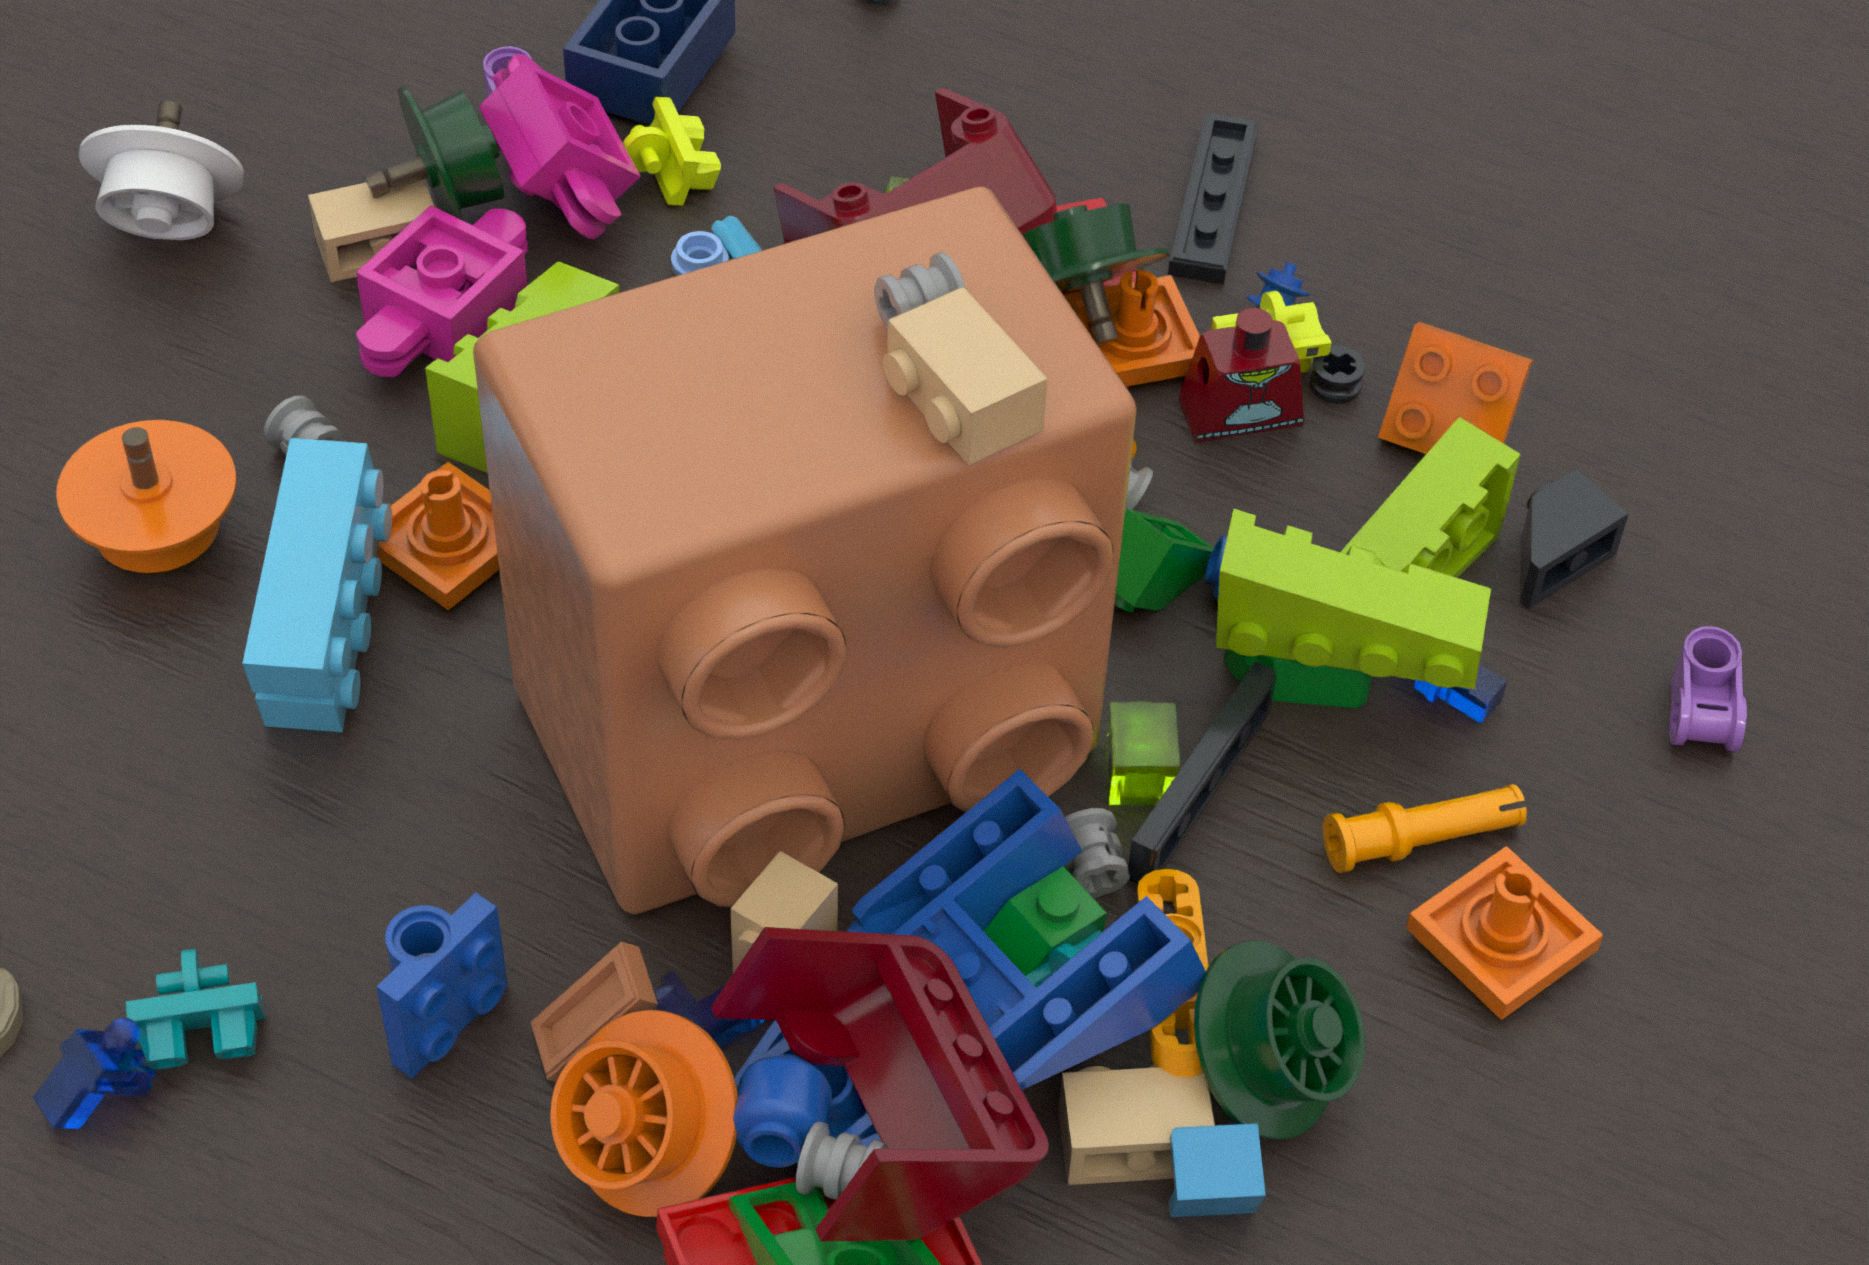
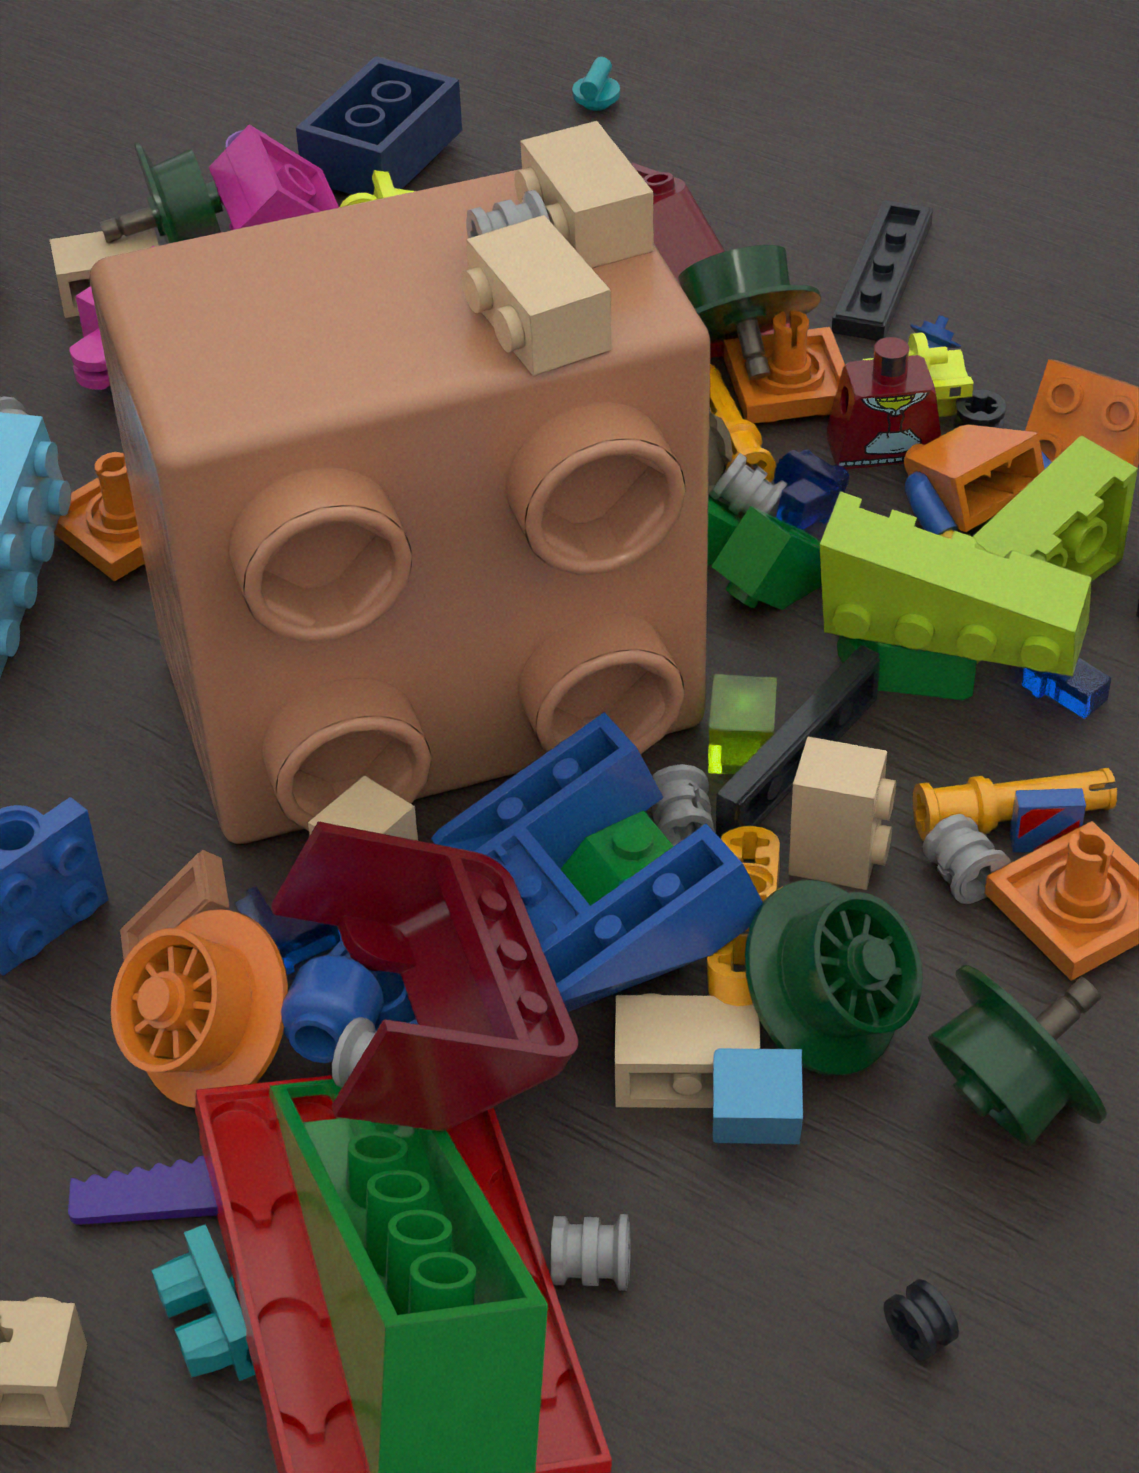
camera: 10 degrees right, 5 degrees down
(998, 245) = (589, 192): none -> tan brick
(1178, 472) = (810, 488): none -> clear blue piece
(1261, 856) = (839, 813): none -> tan brick
(1341, 458) = (969, 475): none -> orange torso
(1383, 892) = (963, 856): none -> light grey bush
(1460, 844) = (1045, 816): none -> blue tile
(1462, 1122) = (1011, 1061): none -> dark green piece

